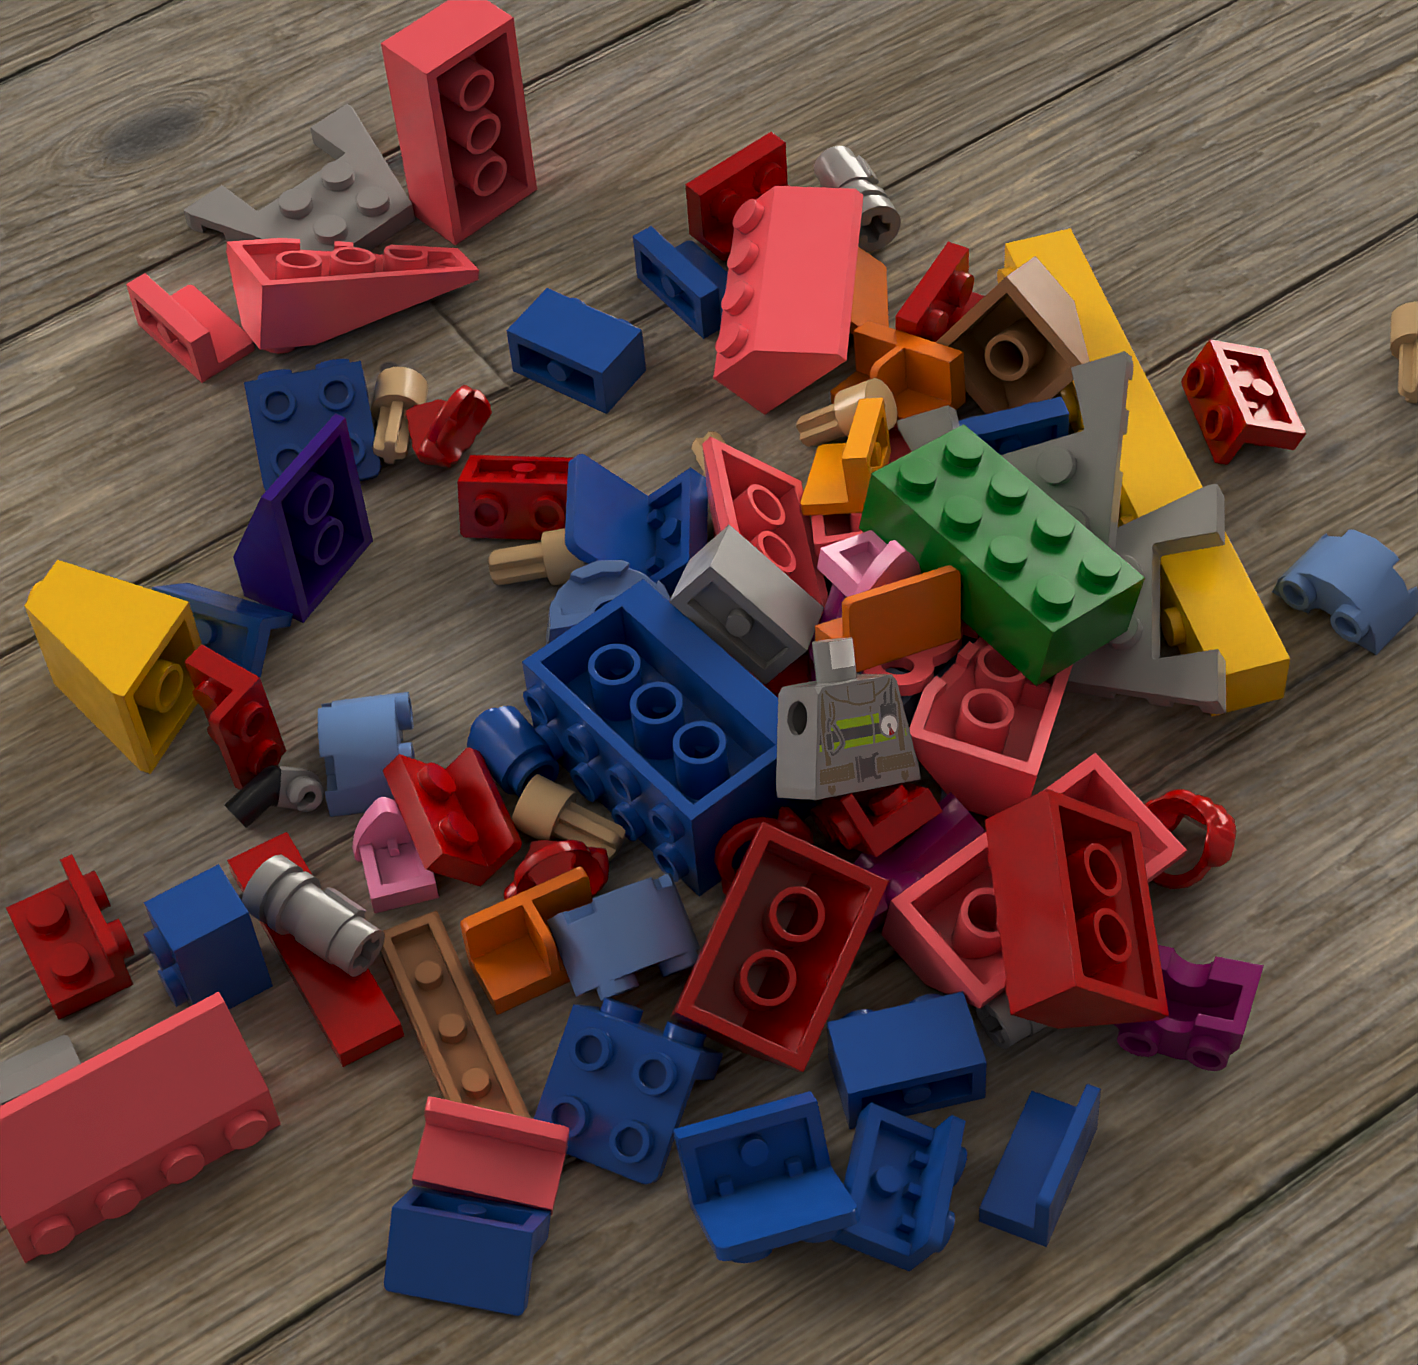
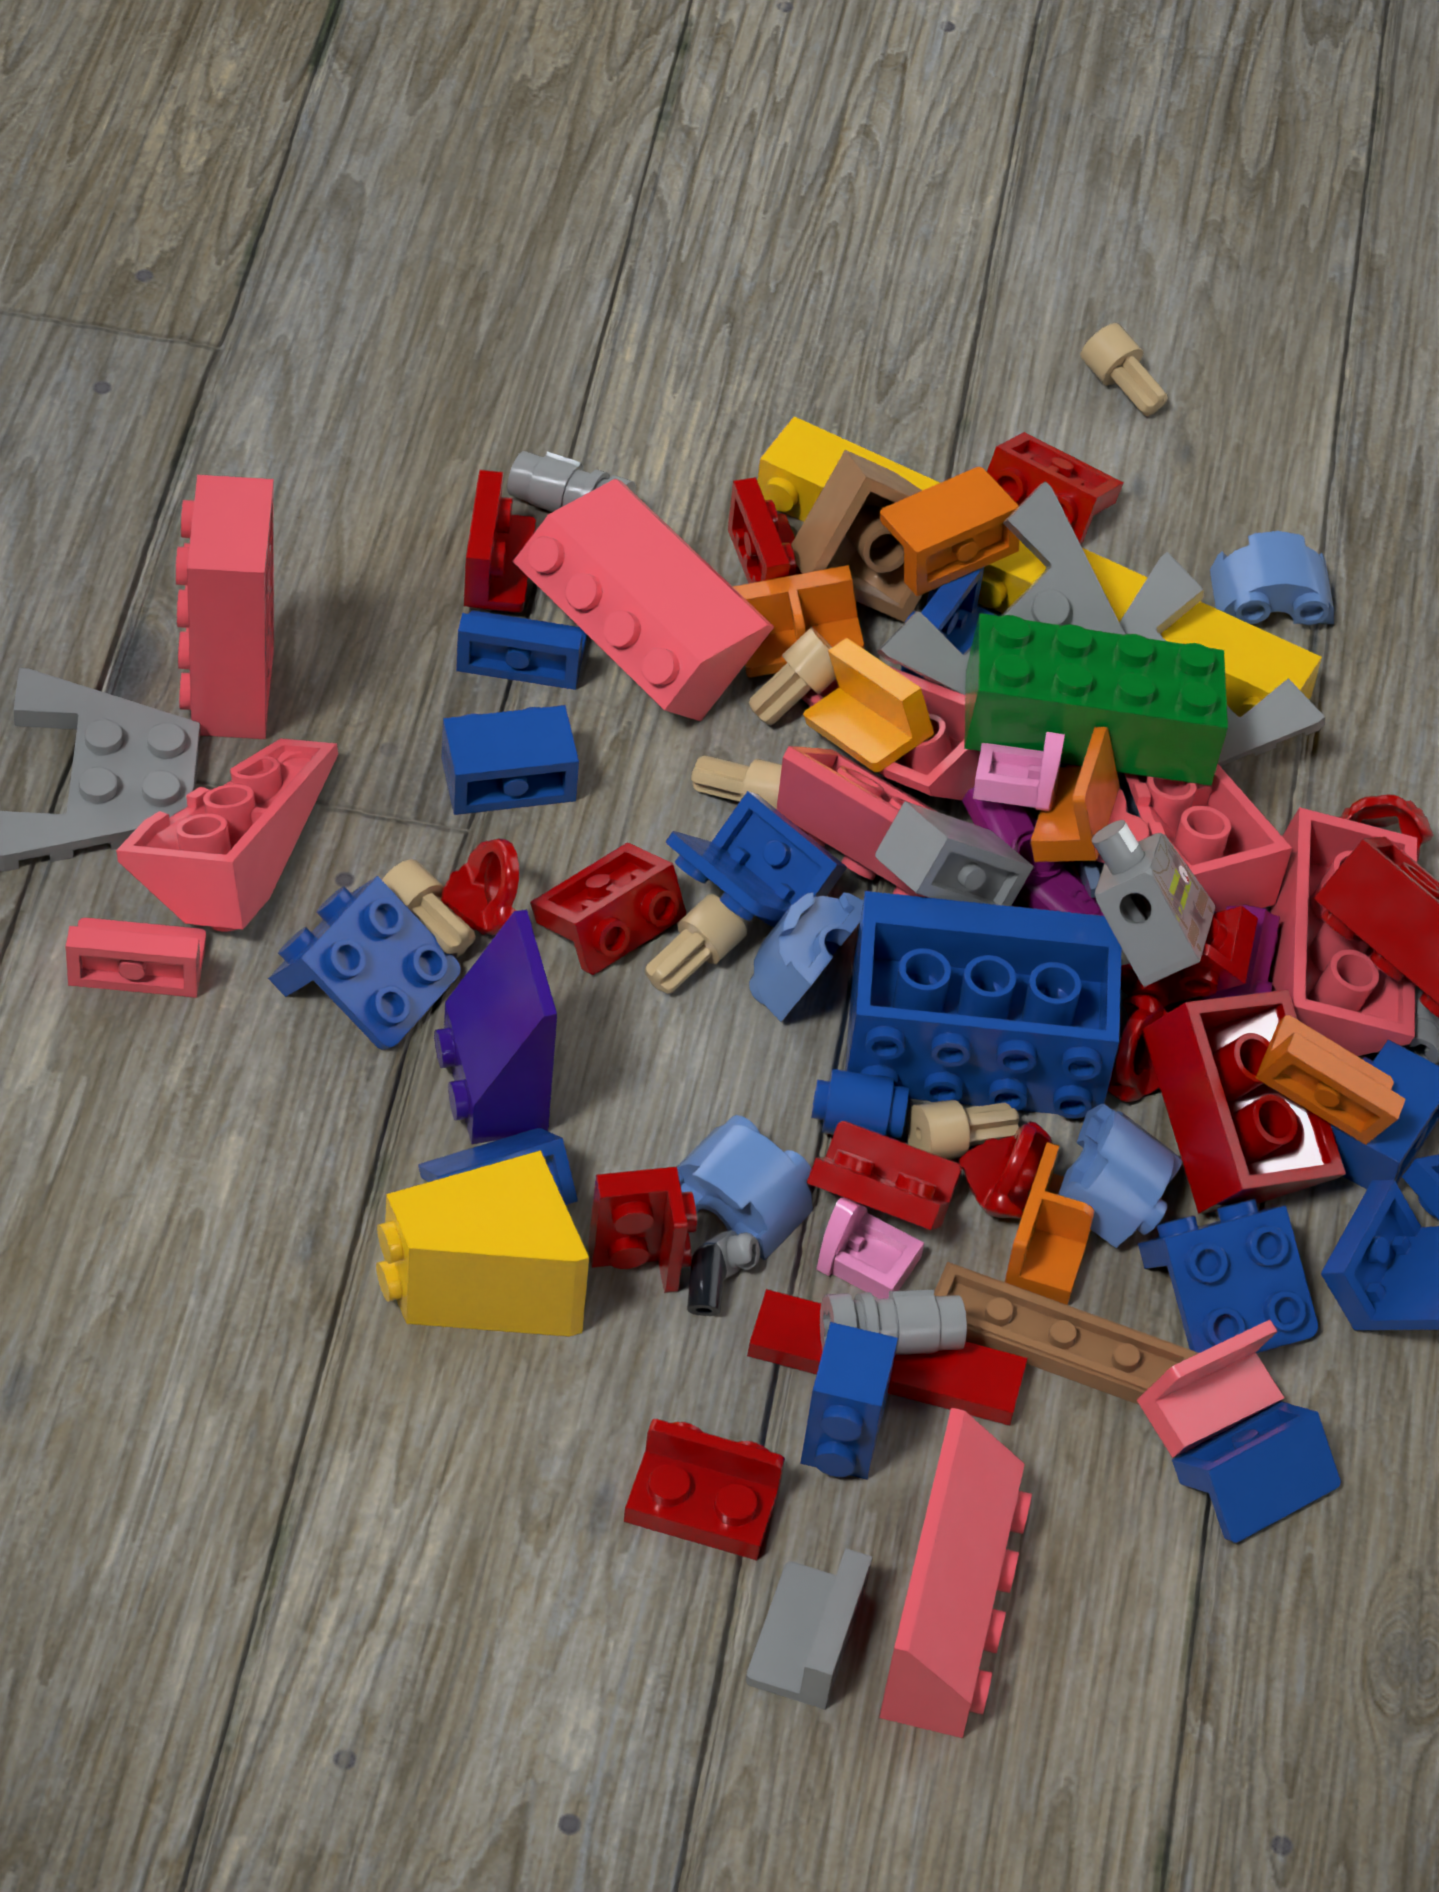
camera: 55 degrees left, 0 degrees up
(845, 974) = (1329, 1081): none -> orange panel
(1034, 355) = (951, 529): none -> orange panel

